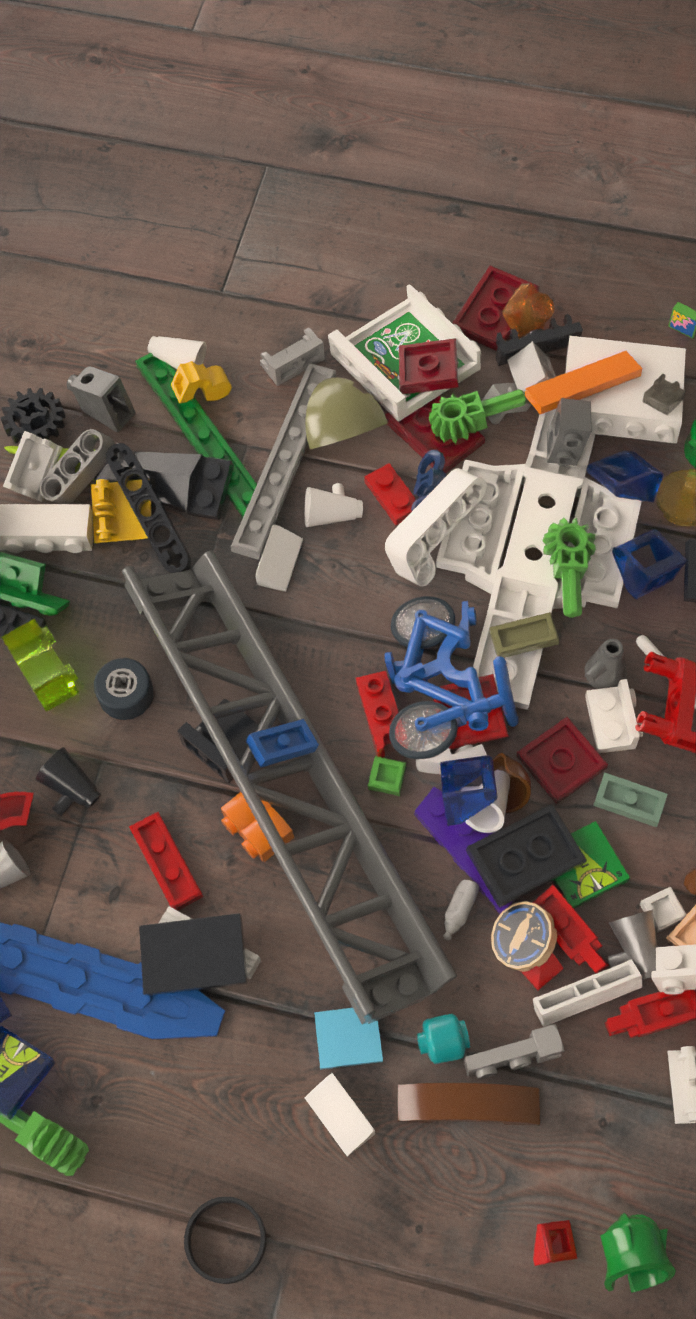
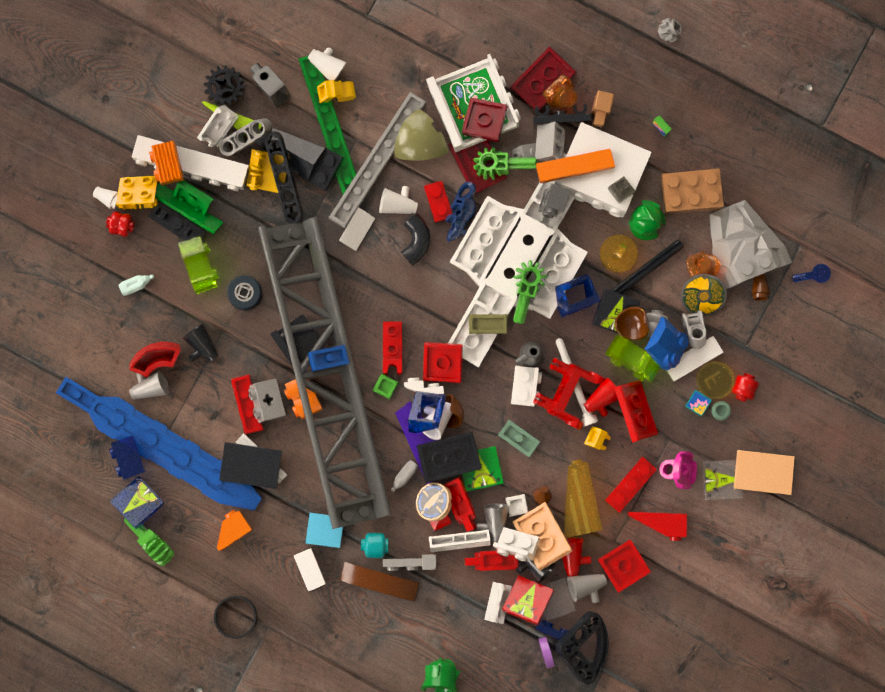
camera: 10 degrees right, 20 degrees up
(186, 1077) = (232, 529): none -> orange slope
(196, 842) = (268, 391): none -> light grey brick
(294, 358) = (401, 83): light grey hinge -> none
(373, 535) = (420, 239): none -> black cylinder
(428, 726) = (412, 369): blue piece -> none
(430, 523) = (454, 238): white beam -> none
(554, 1243) = (402, 661): red slope -> none
(561, 760) = (488, 403): dark red tile -> none
(592, 308) = (601, 108): none -> medium nougat piece
(636, 476) = (589, 232): clear blue tile -> none
(651, 205) = (670, 30): none -> light grey gear

